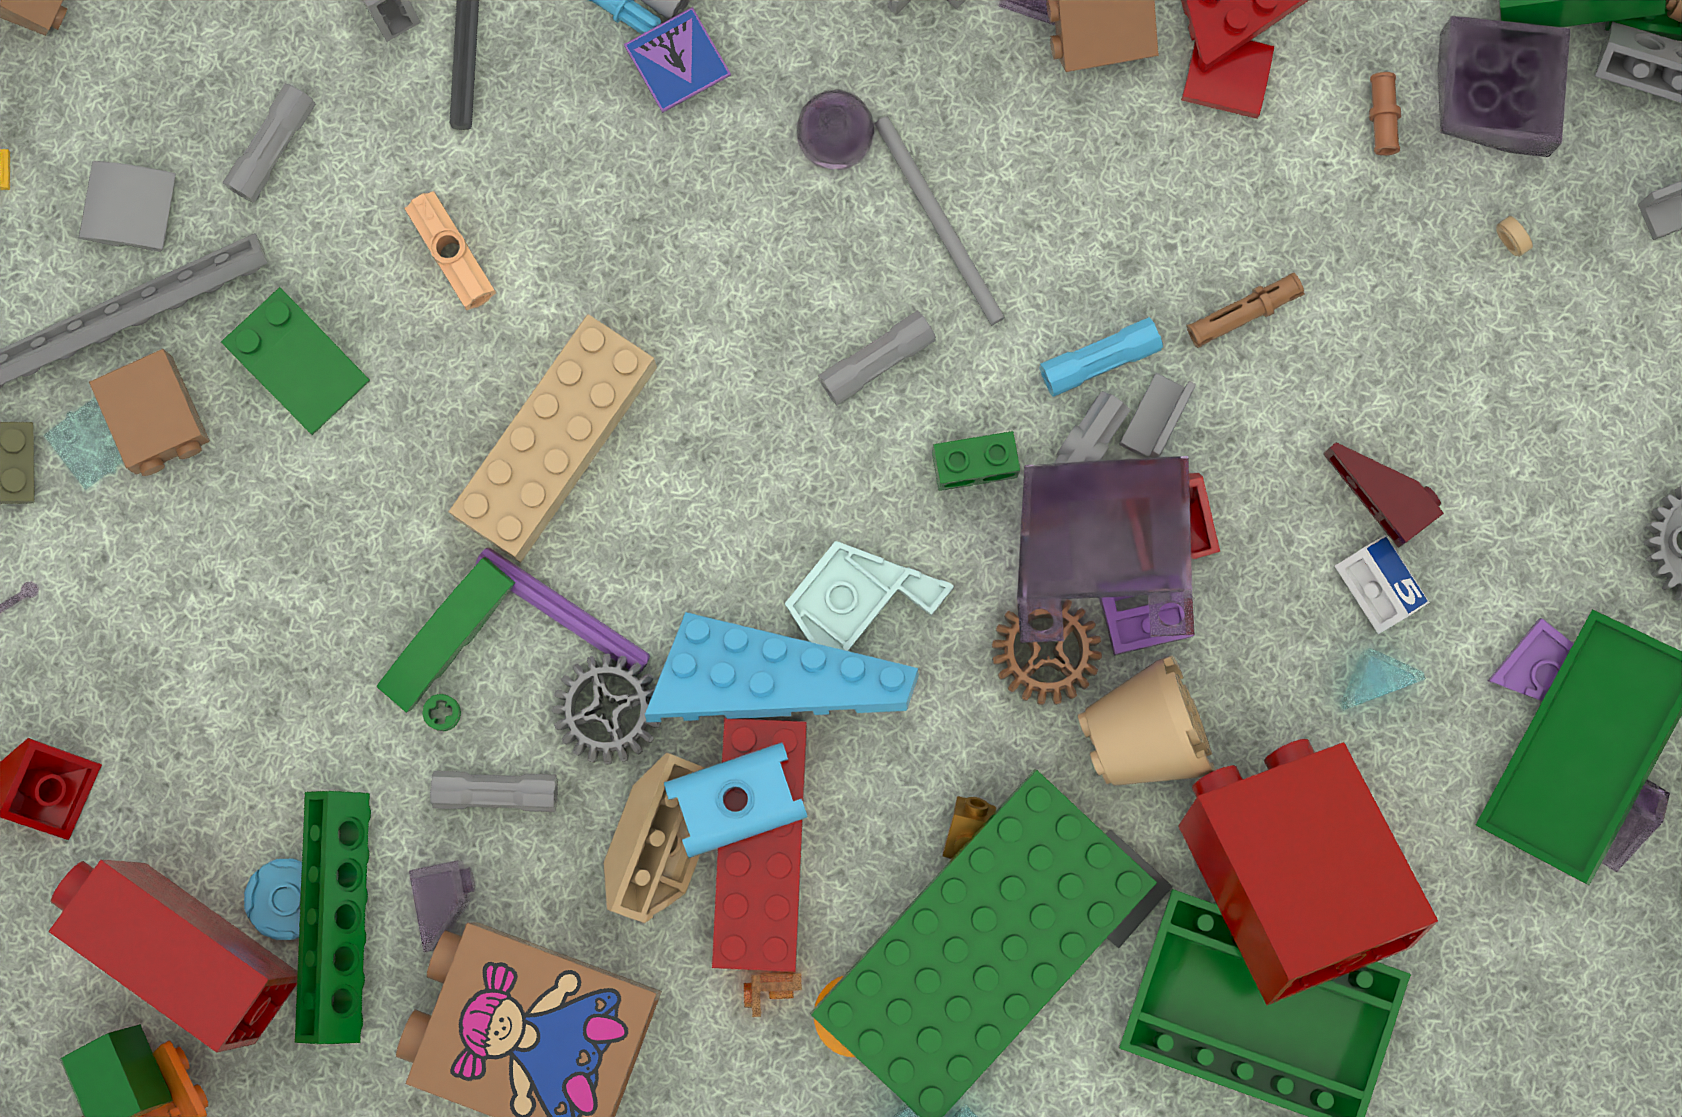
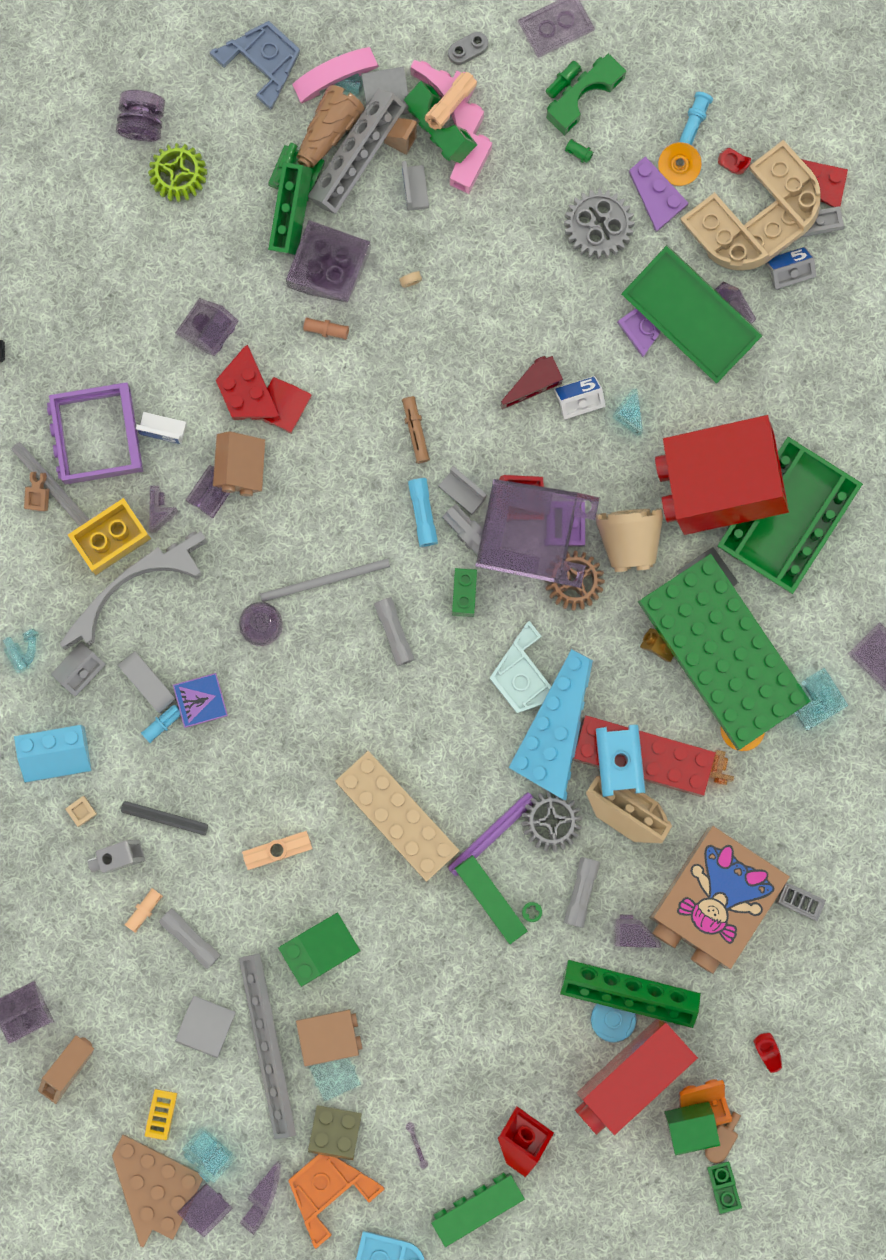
camera: 80 degrees left, 0 degrees up
(300, 56) = (143, 910): none -> light nougat pin

